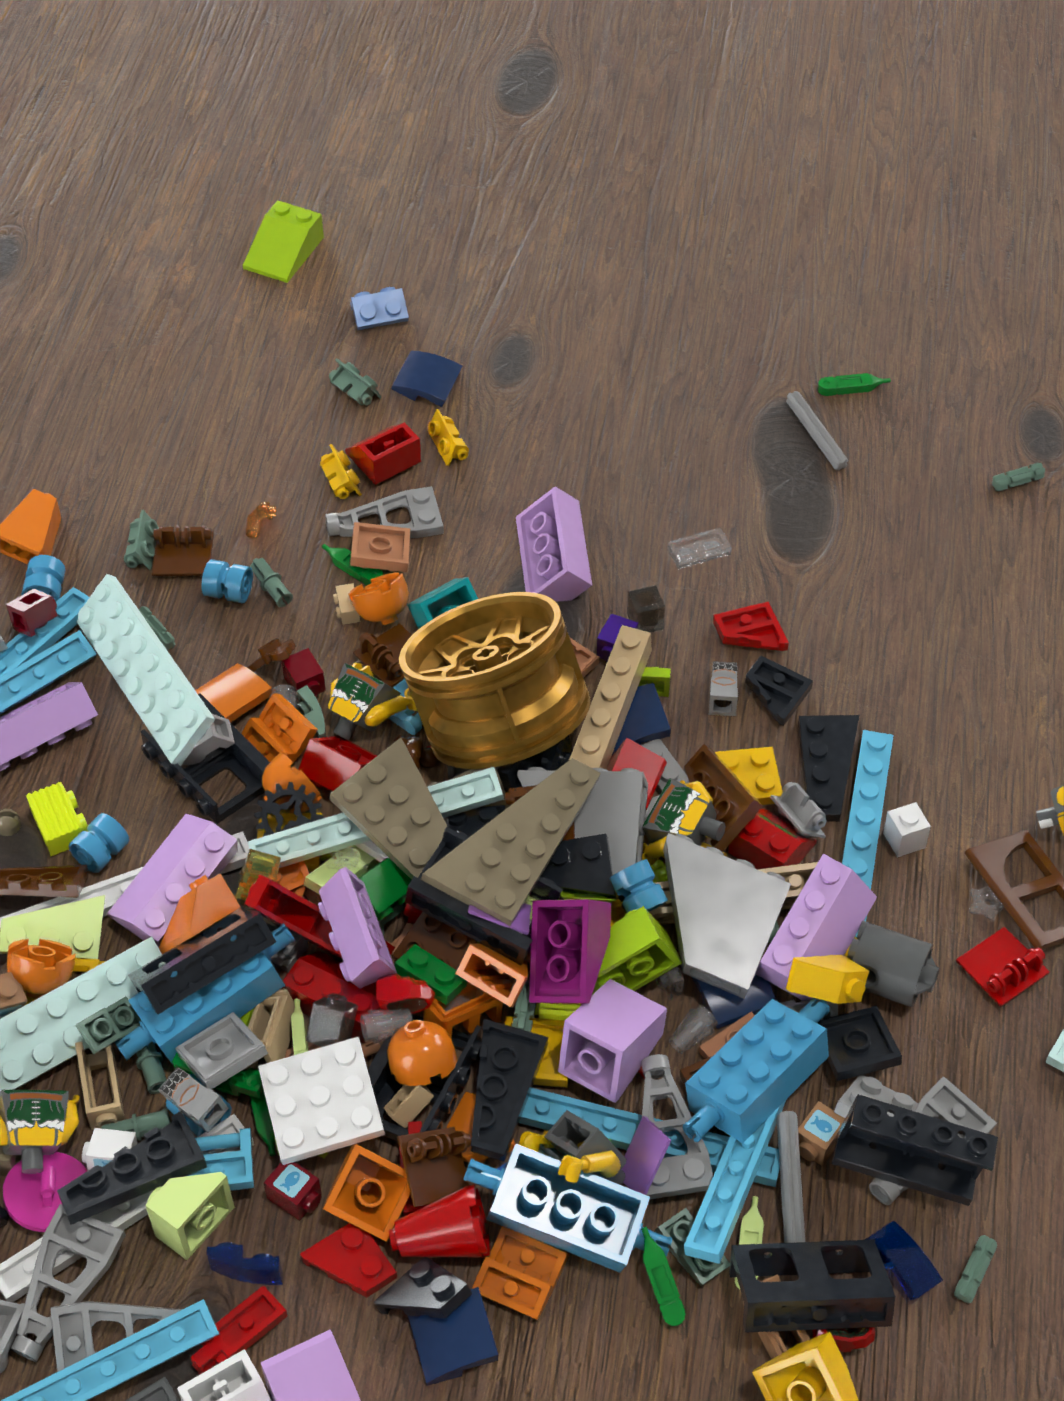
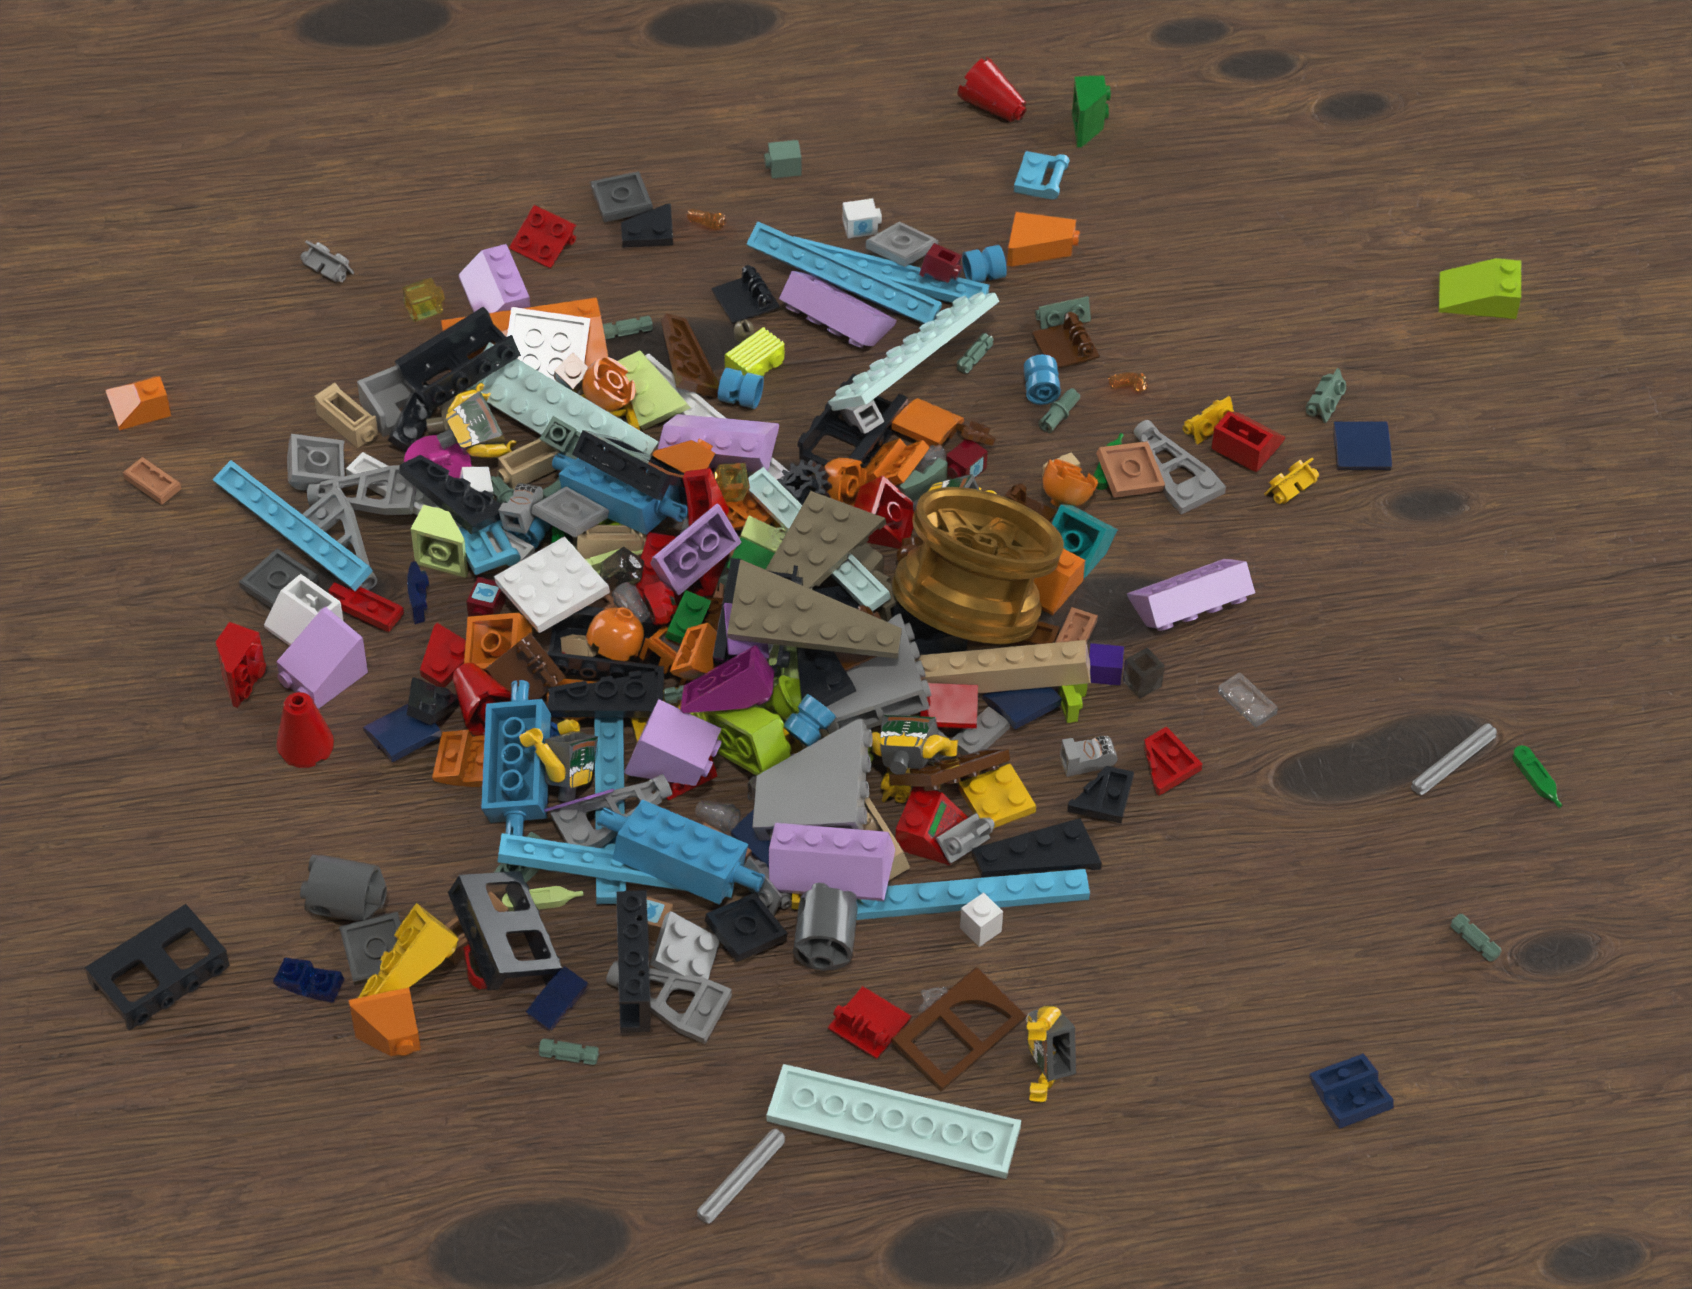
camera: 70 degrees right, 0 degrees up
(379, 308) = (1432, 384): medium blue bracket -> none
(662, 1281) = (483, 843): green piece -> none
(790, 1177) = (592, 907): light grey axle -> none
(828, 978) = (780, 875): yellow slope -> none

